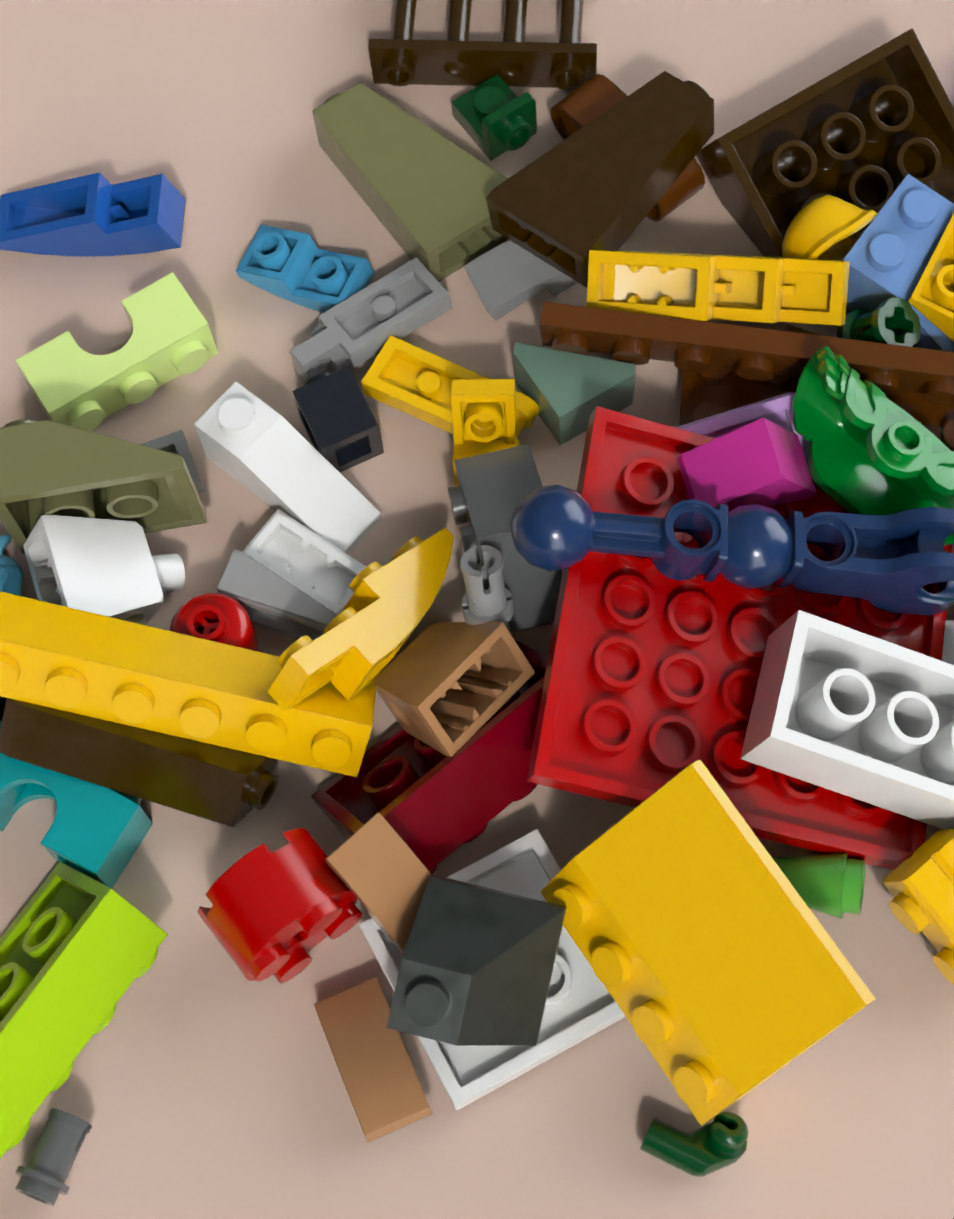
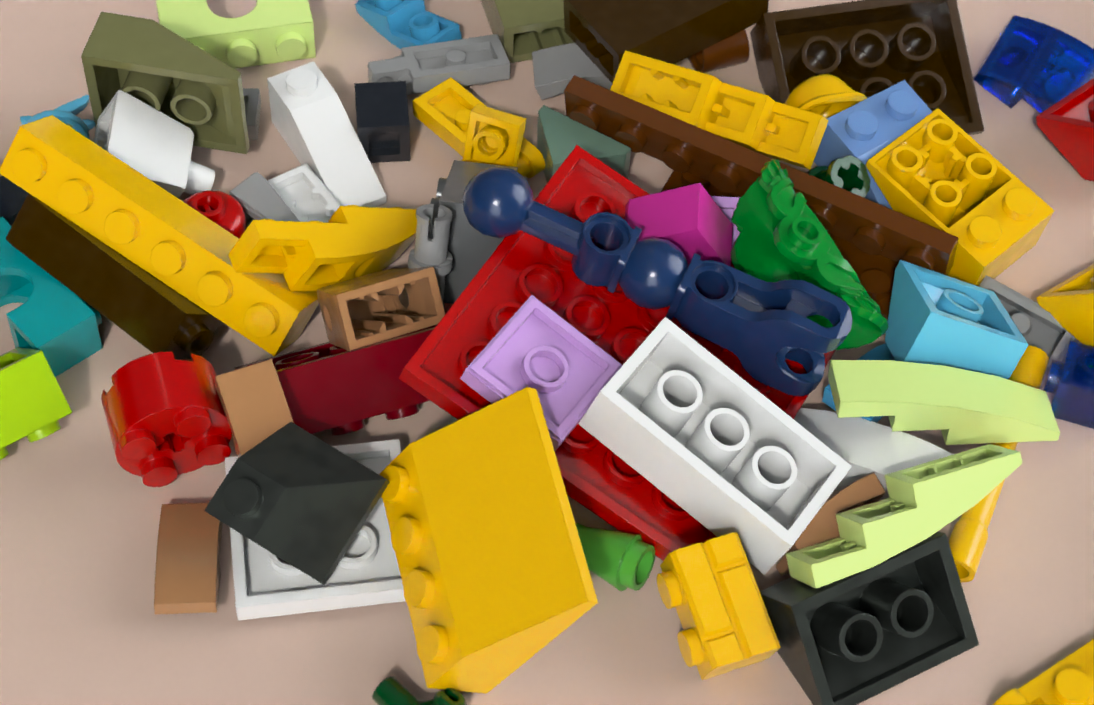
camera: 10 degrees right, 15 degrees down
(681, 710) = (543, 354): none -> lavender plate

